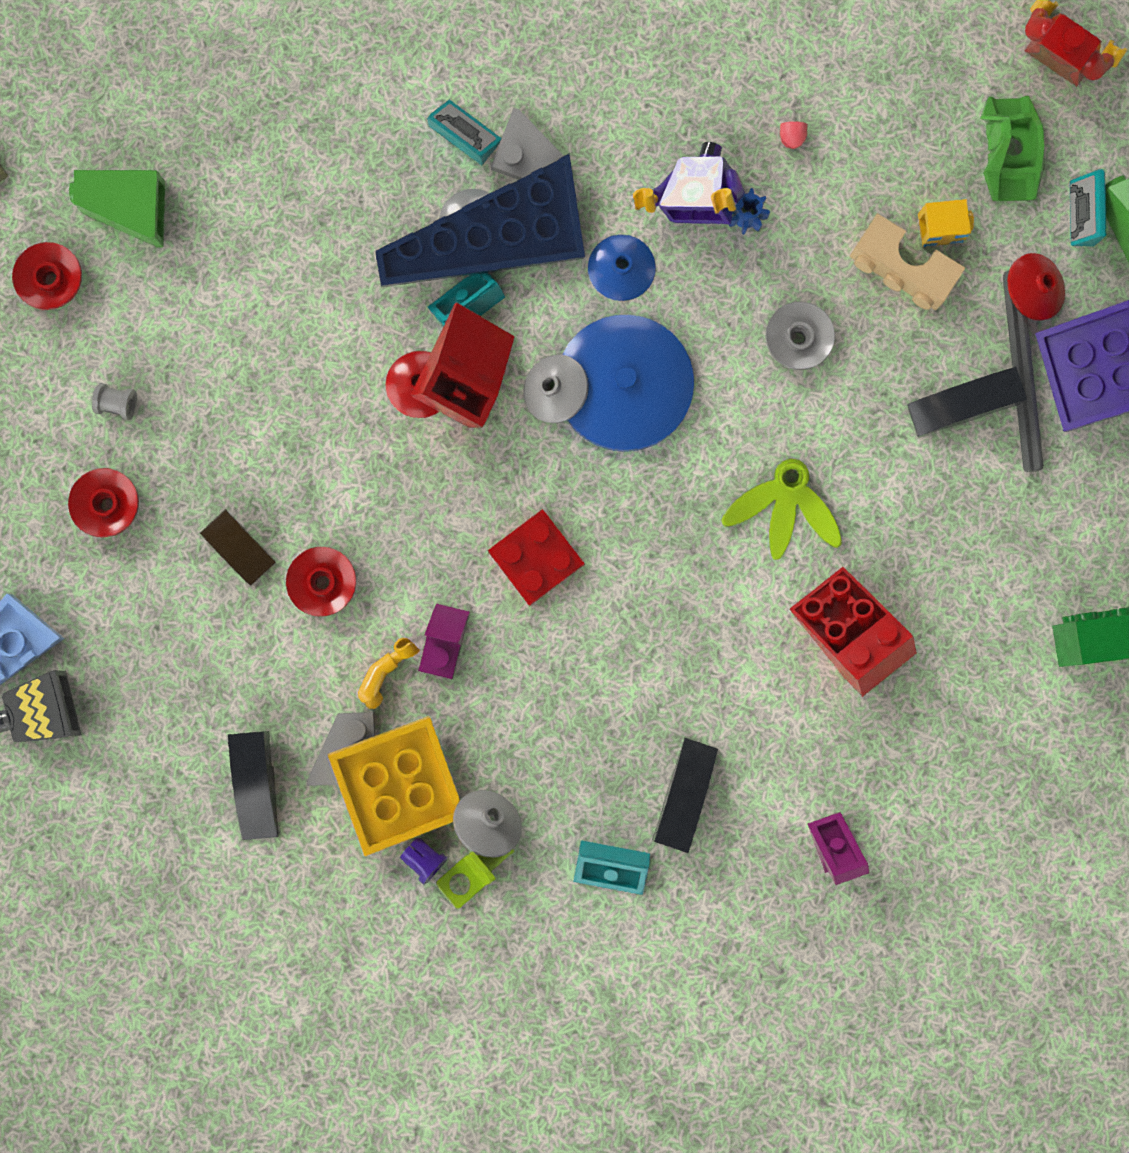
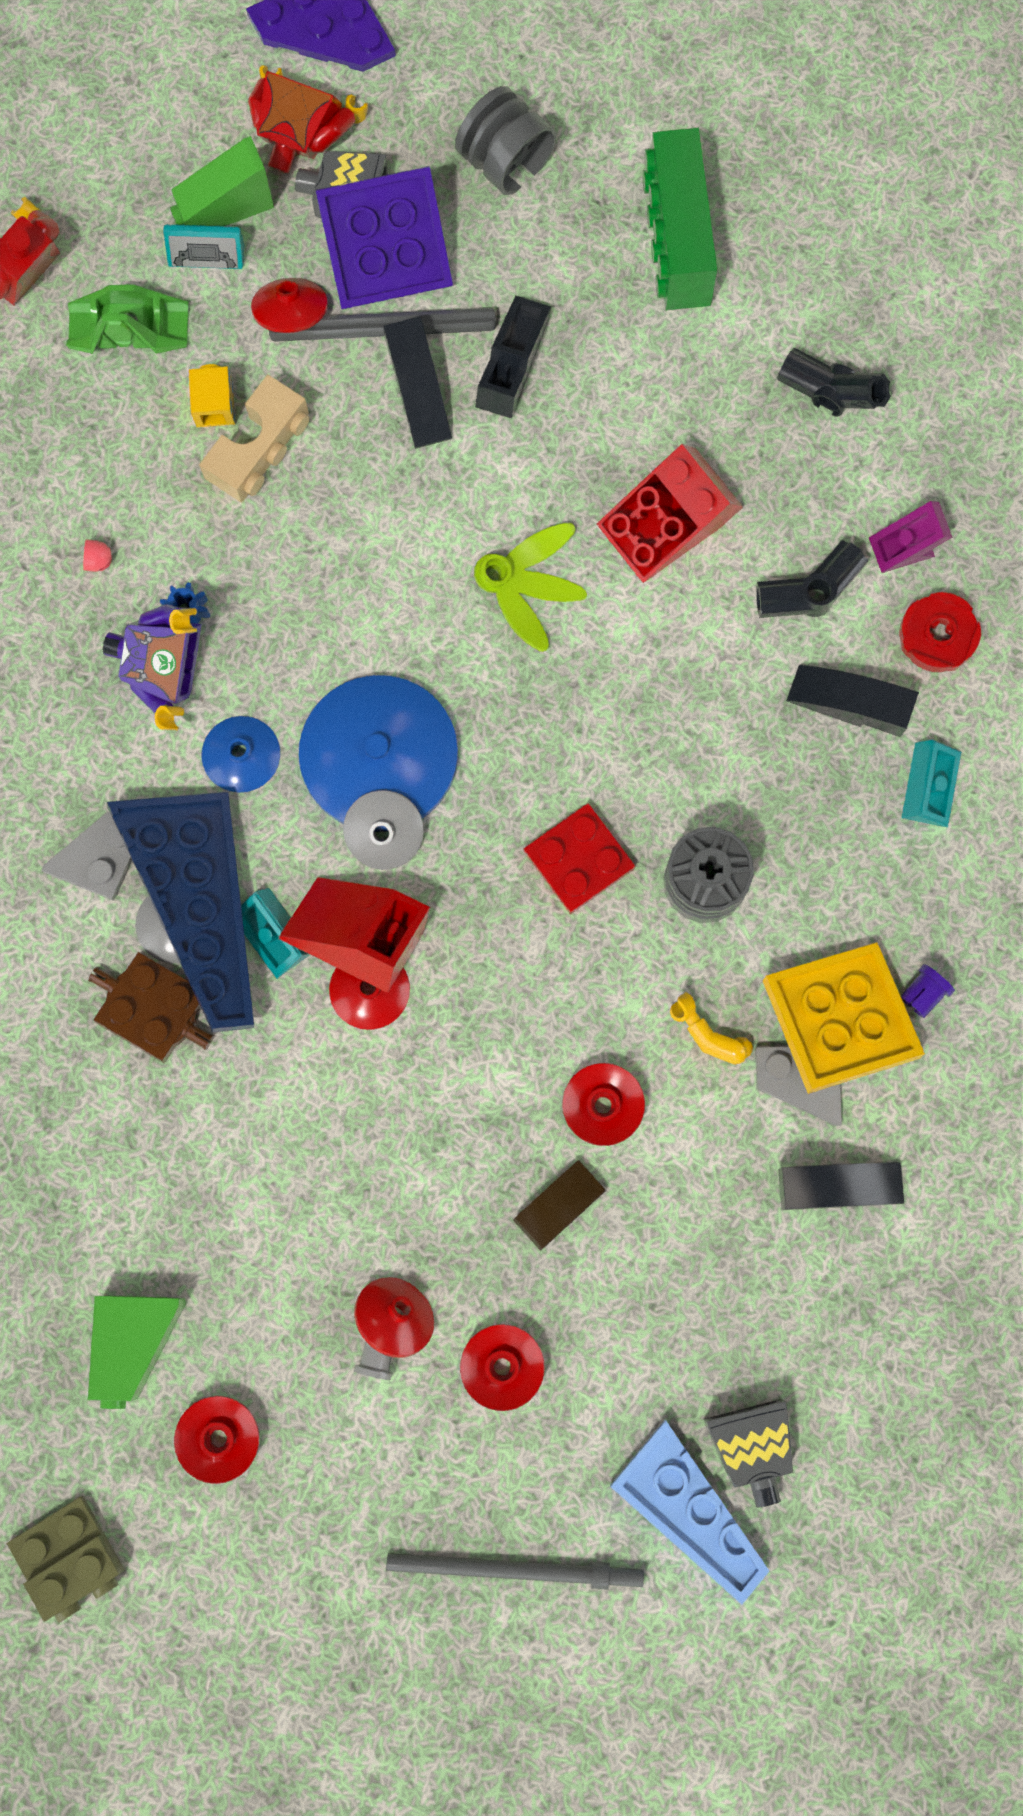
camera: 85 degrees left, 5 degrees down
(133, 399) = (386, 1328): none -> red dish
(398, 202) = (149, 1008): none -> reddish brown plate
(443, 641) = (674, 965): magenta slope -> none
(464, 131) = (66, 929): slope -> none
(477, 870) = (936, 931): lime bracket -> none
(479, 832) = (885, 916): light grey dish -> none
(504, 649) = (687, 883): none -> dark grey wheel
(760, 894) = (960, 624): none -> red plate
(799, 778) = (832, 577): none -> black piece
(802, 319) = (329, 539): light grey dish -> none
(984, 778) = (833, 385): none -> black piece
(997, 486) = (512, 357): none -> black slope

